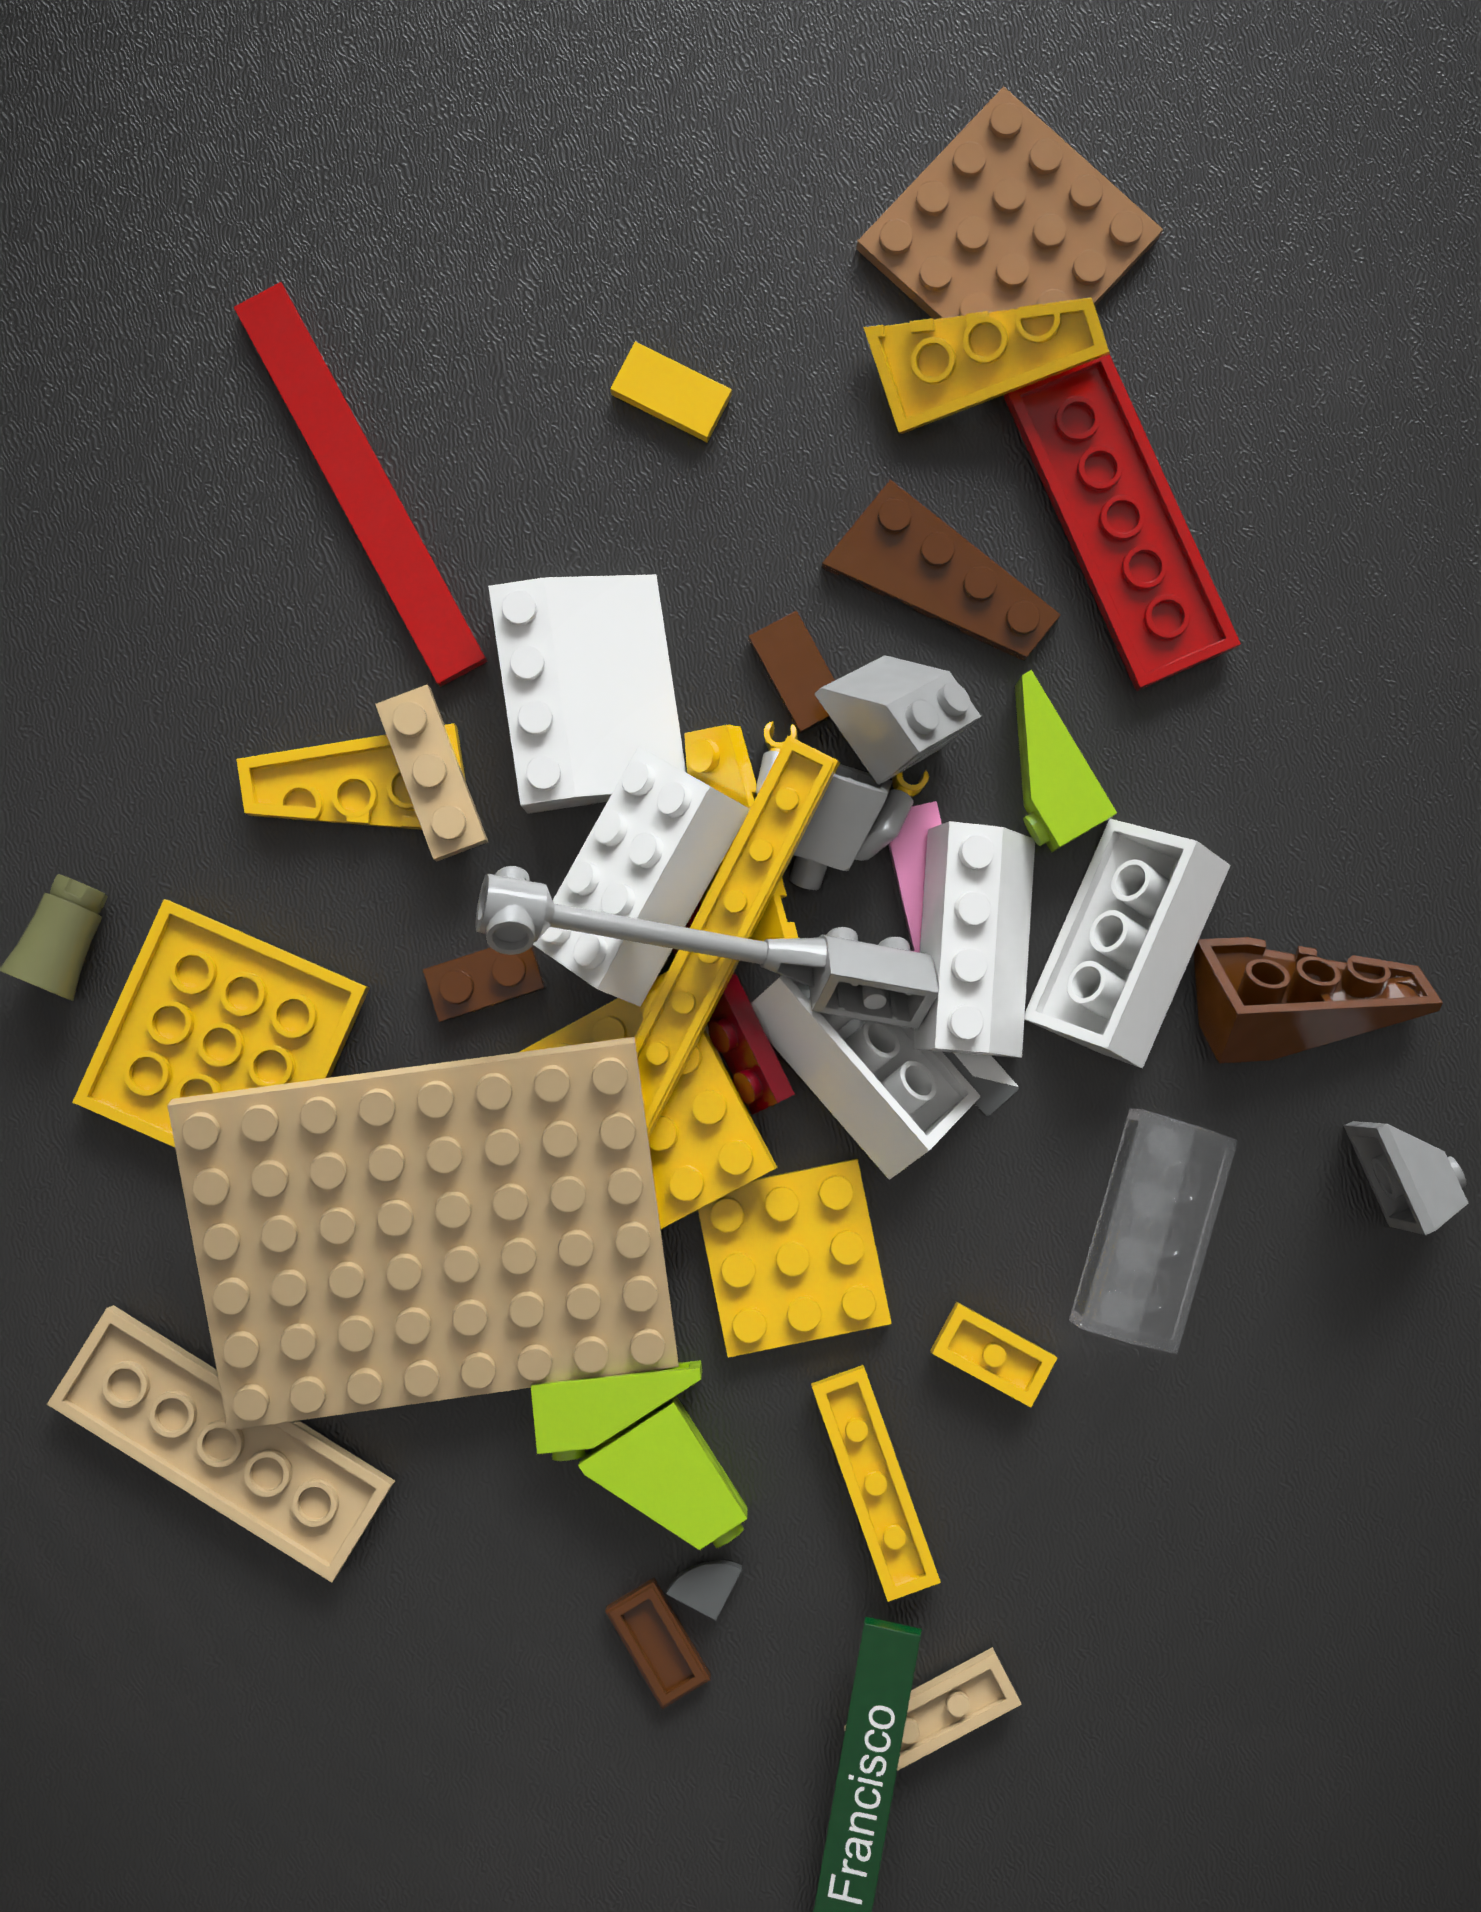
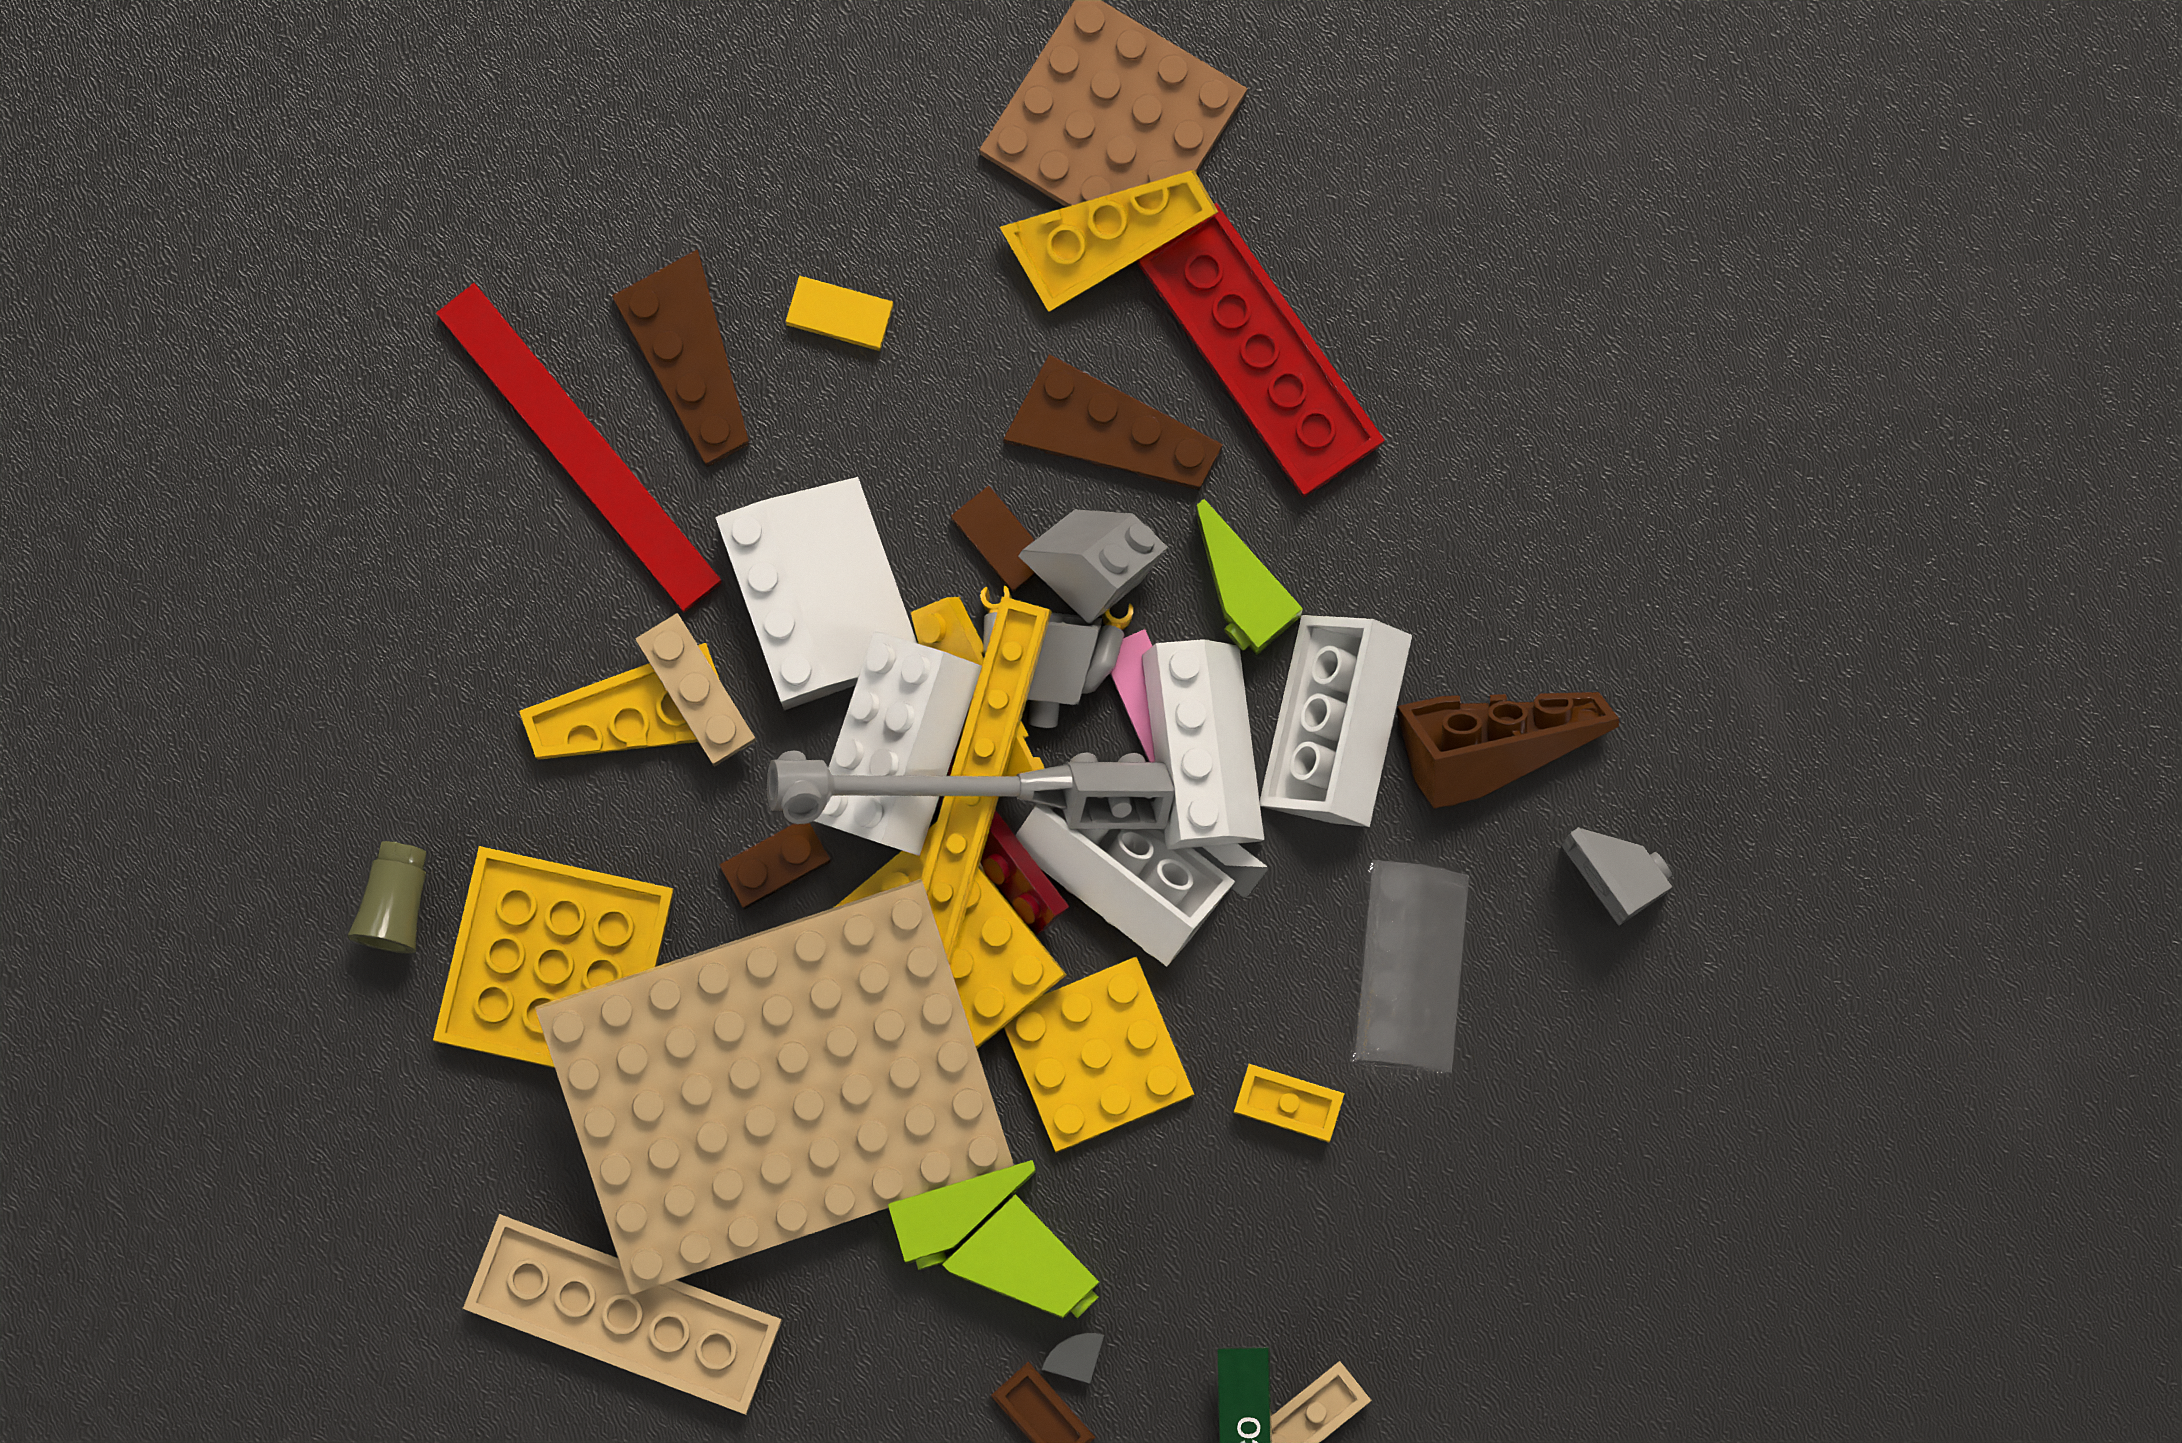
camera: 15 degrees left, 5 degrees down
(494, 391) = (684, 347): none -> reddish brown wing
(875, 1483) = (1206, 1235): yellow plate -> none

